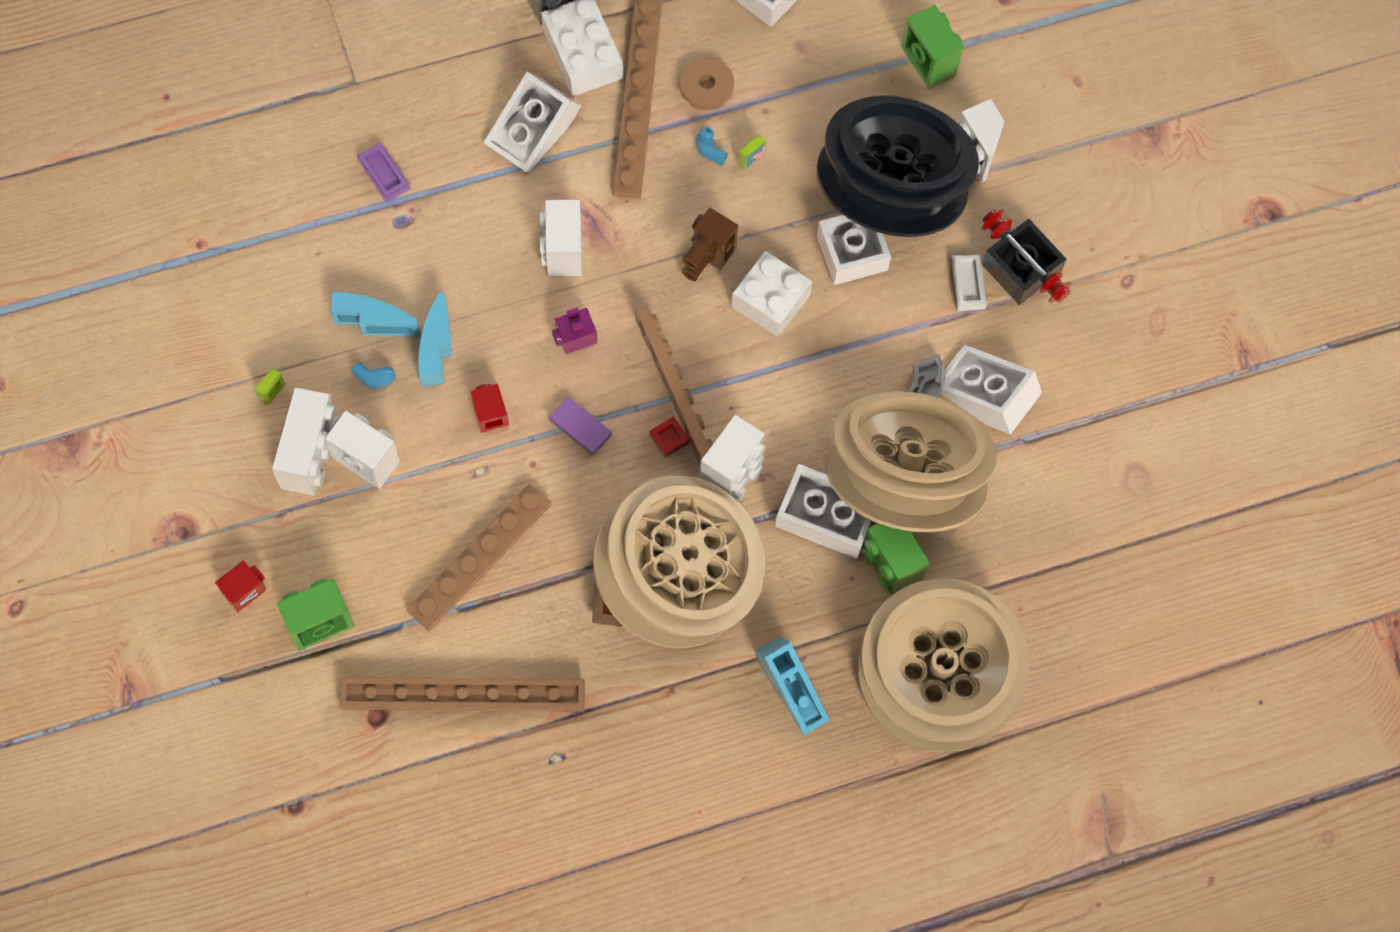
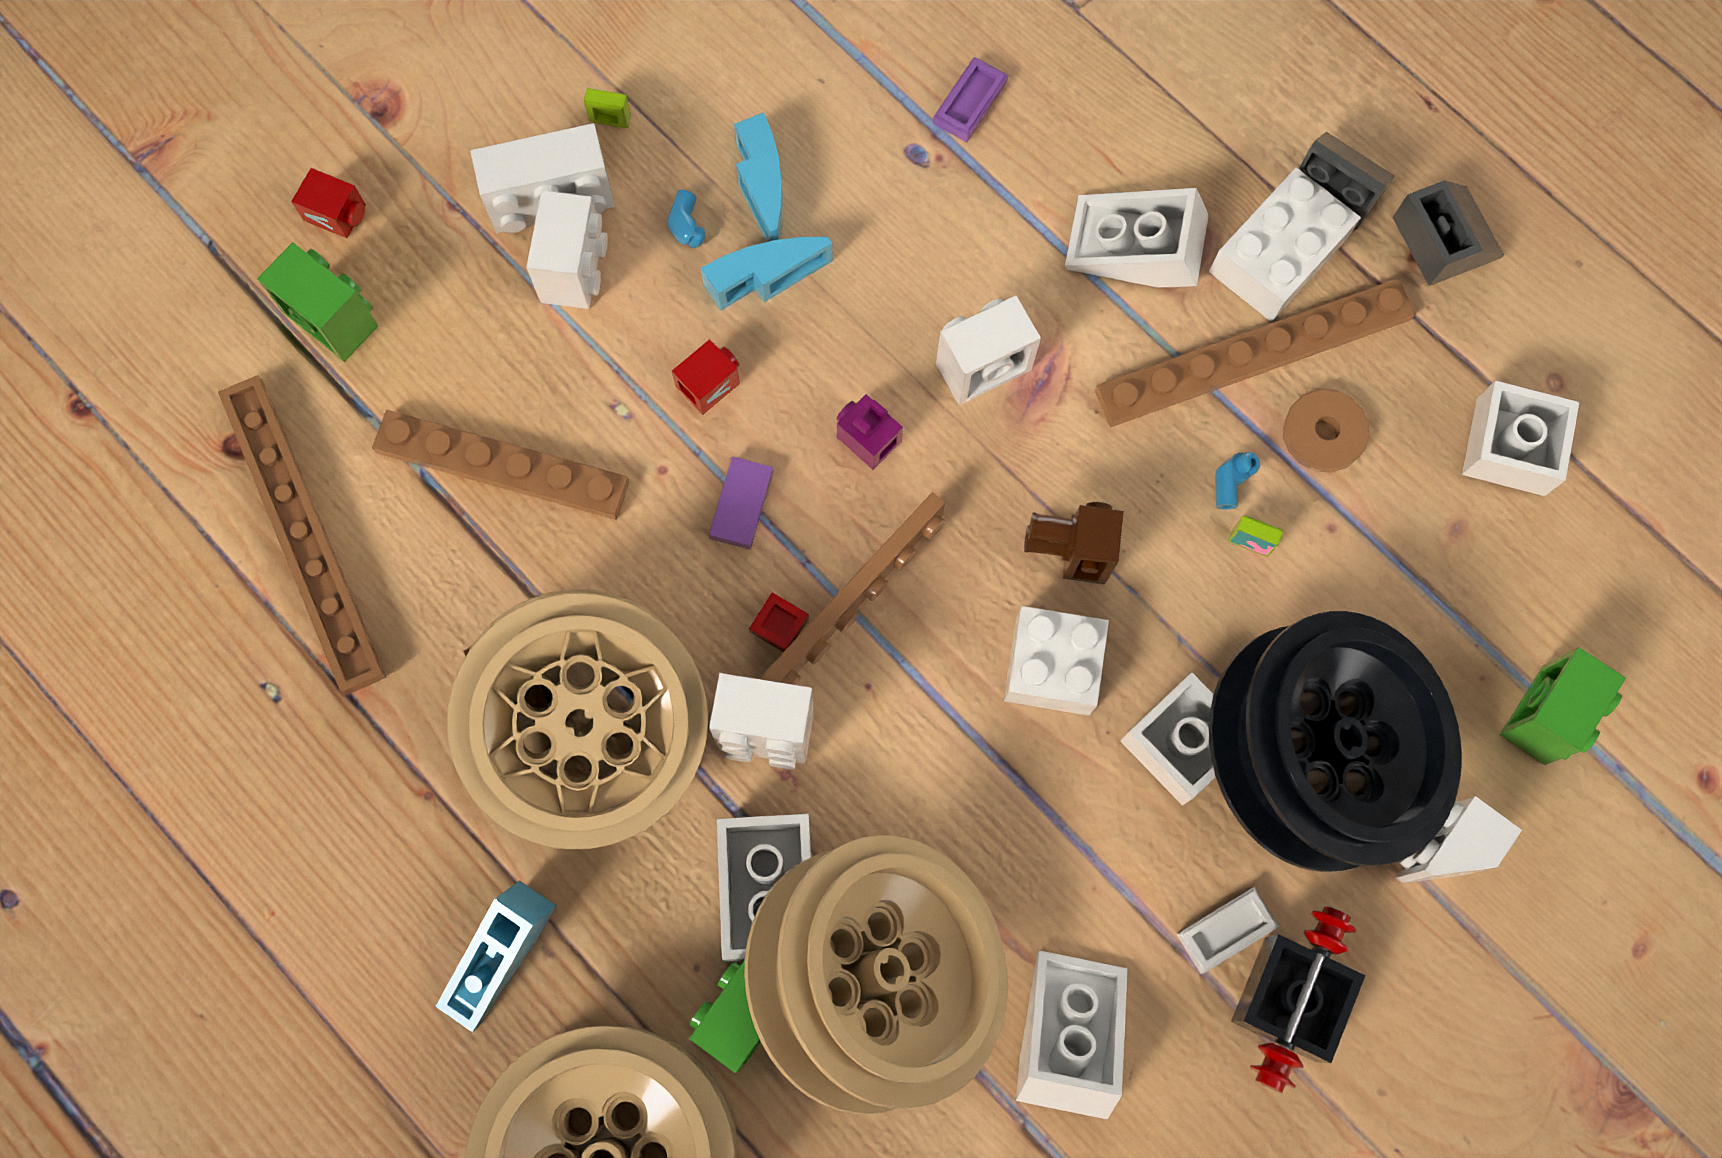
camera: 65 degrees right, 5 degrees up
(928, 377) = (1038, 940): light grey tile -> none

